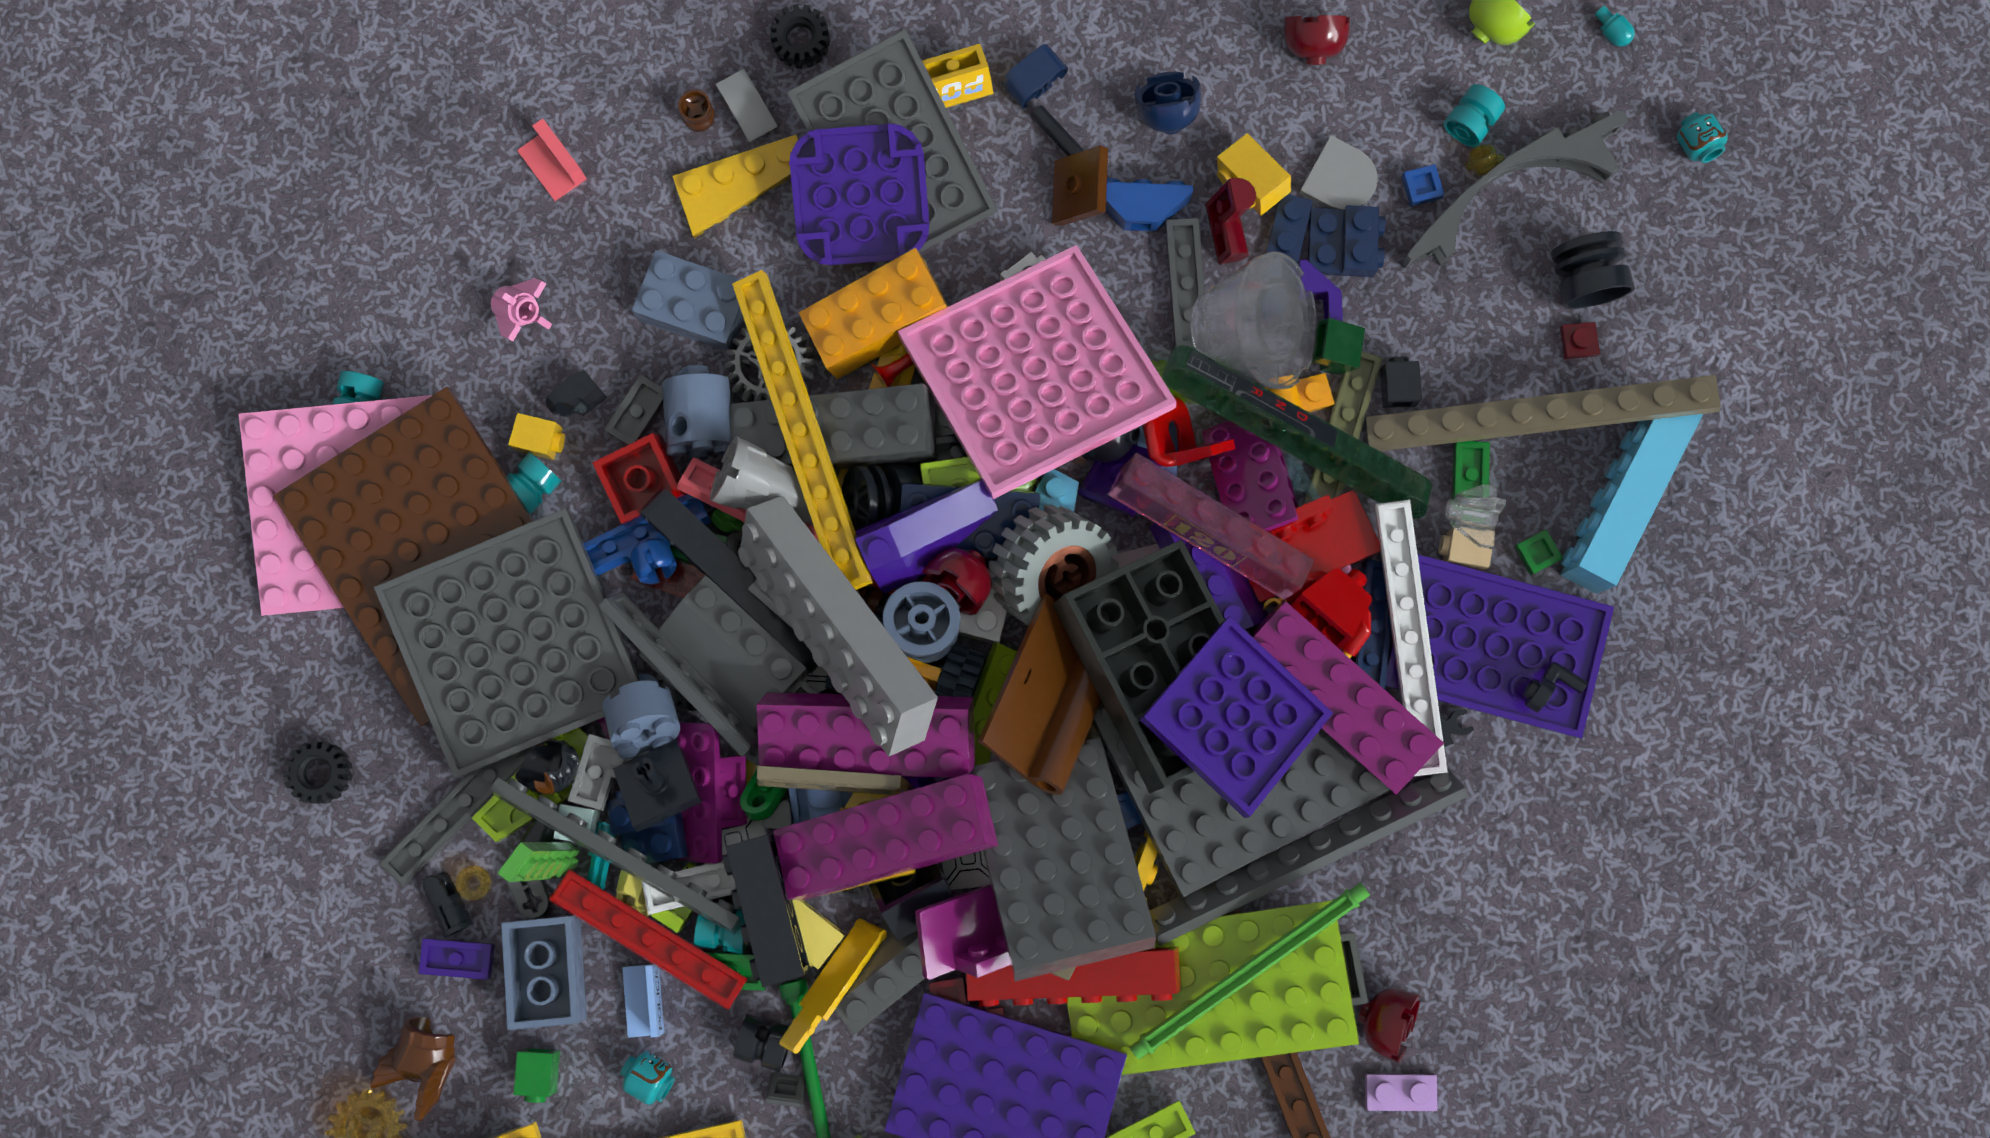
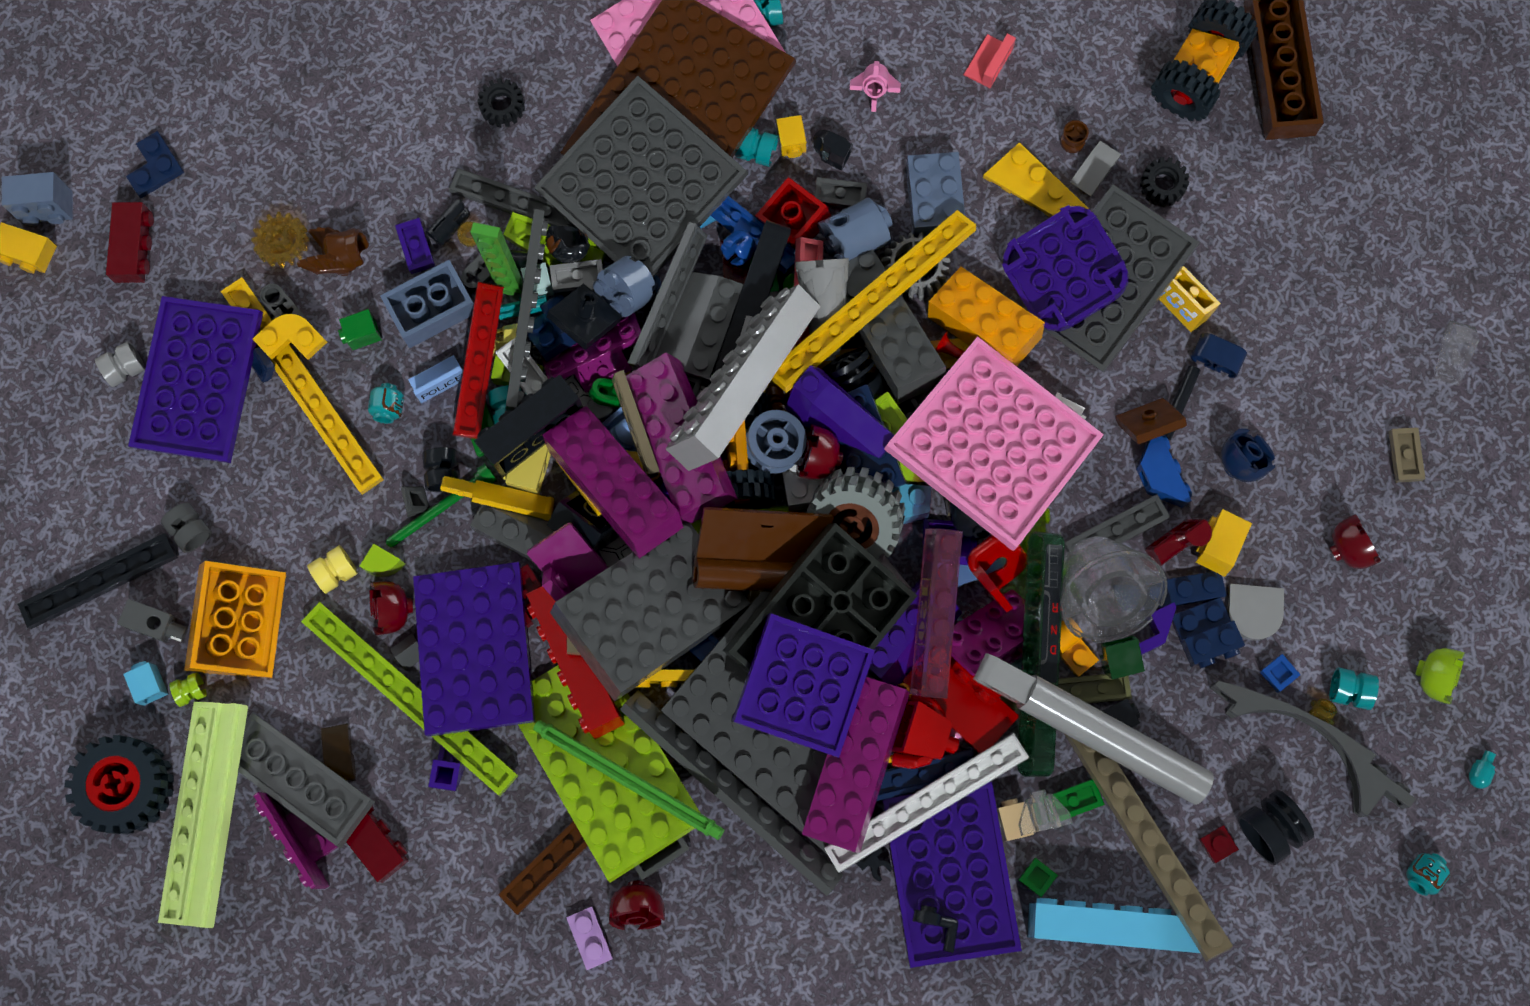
camera: 70 degrees right, 5 degrees down
(1413, 410) = (1096, 729): none -> light grey piece

